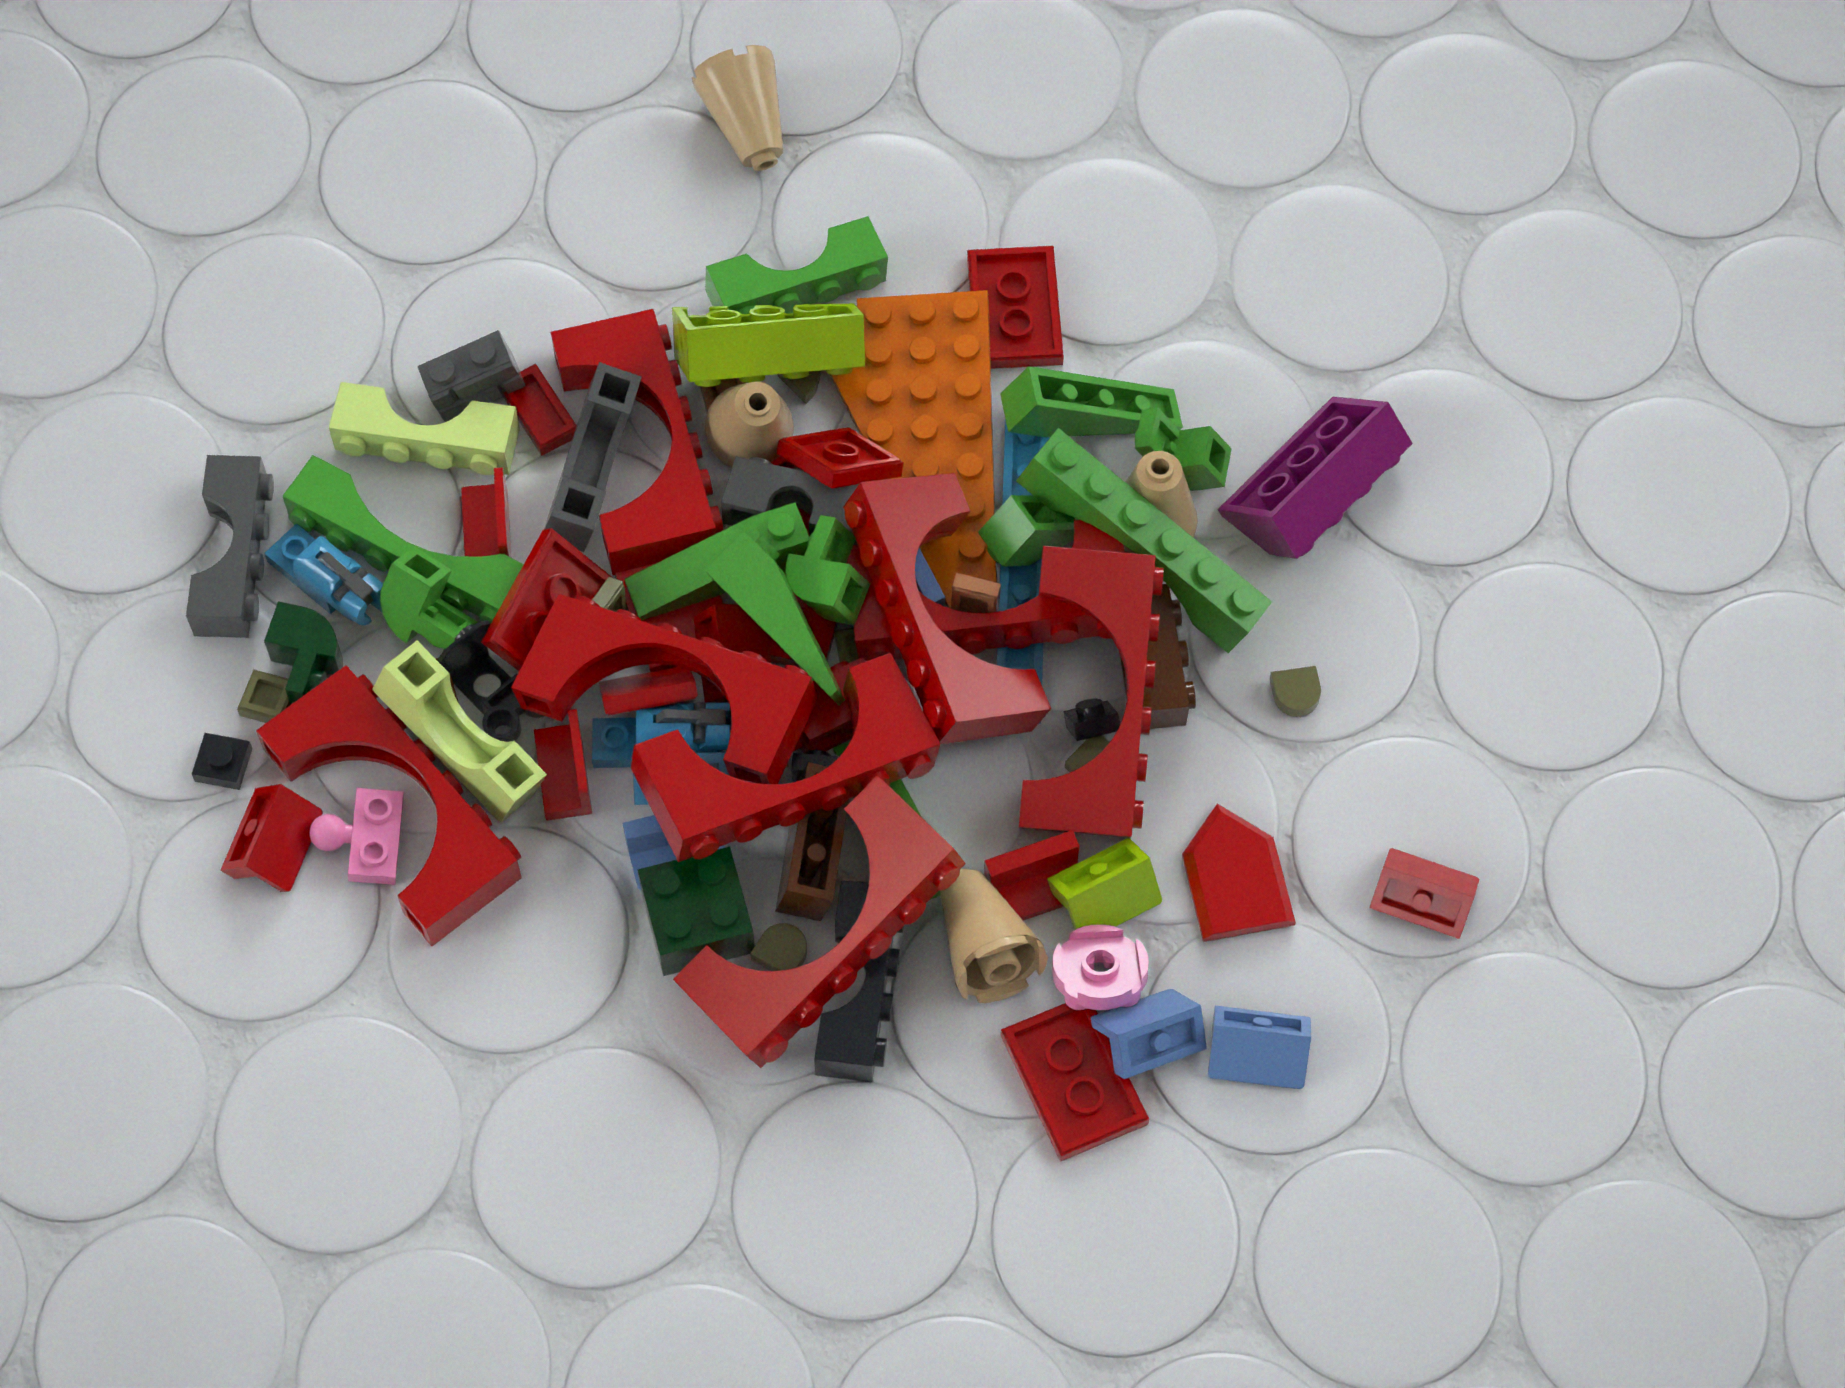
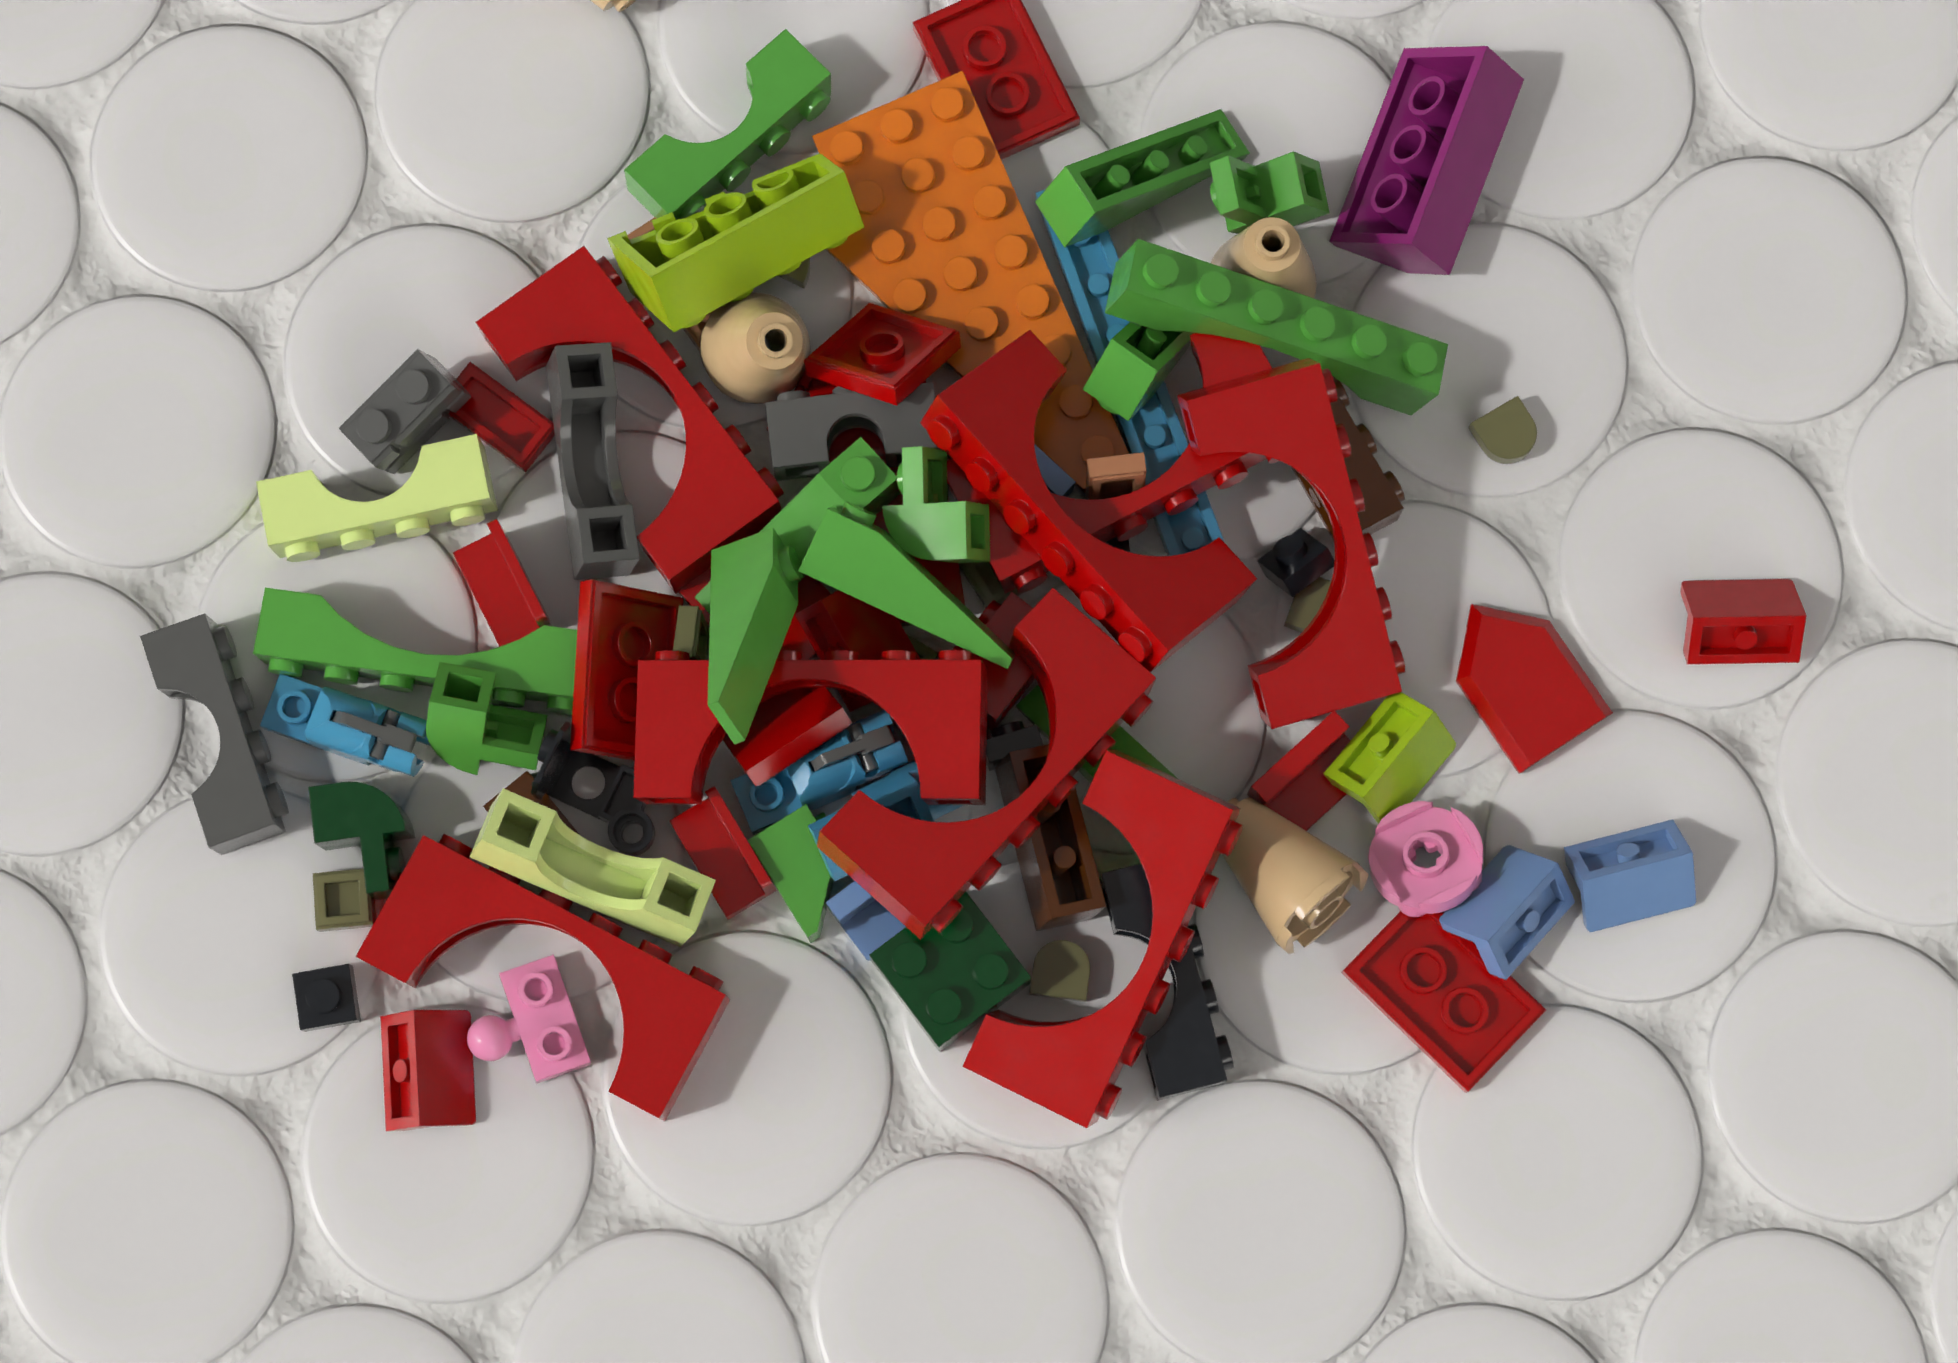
camera: 20 degrees left, 15 degrees up
(612, 798) = (796, 868): none -> bright green slope
(648, 591) = (749, 617): none -> bright green slope

